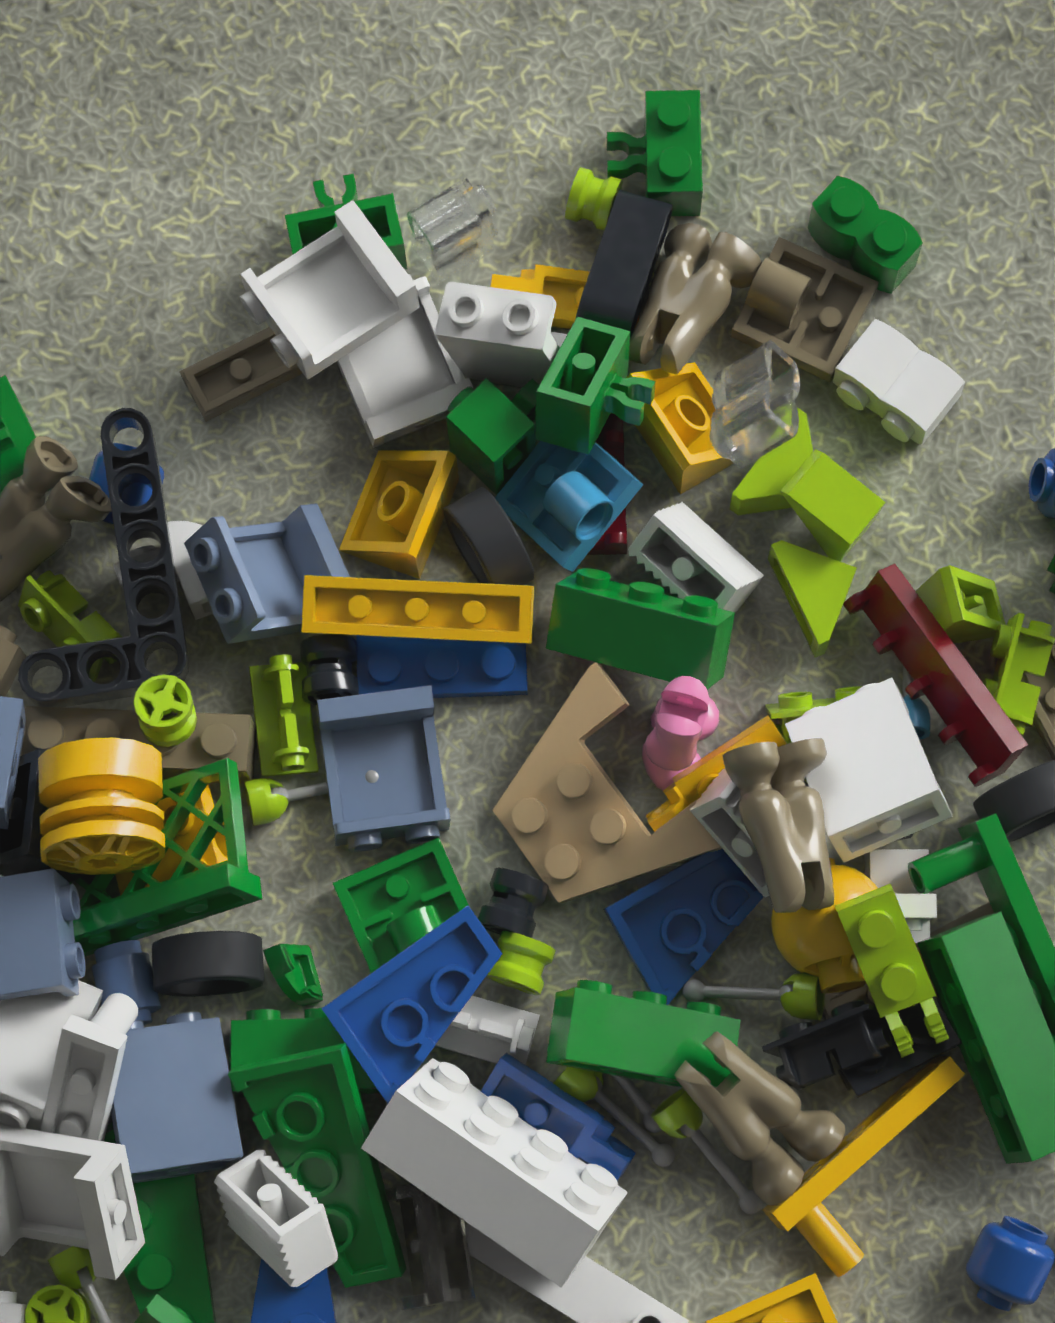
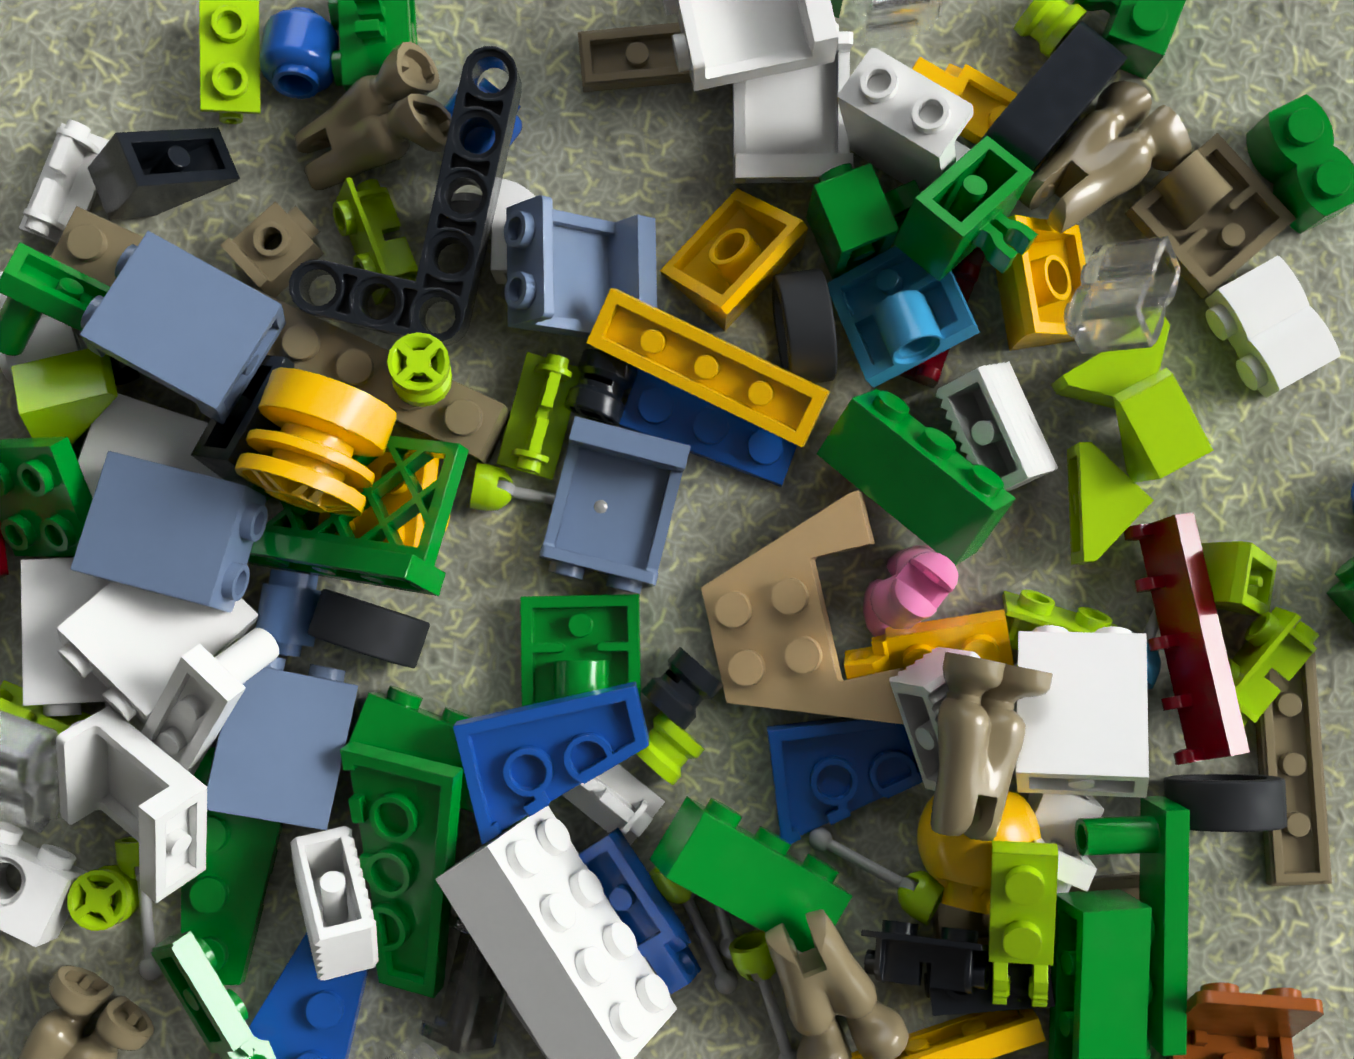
camera: 25 degrees right, 10 degrees up
(295, 972) = (451, 666): green tile -> none

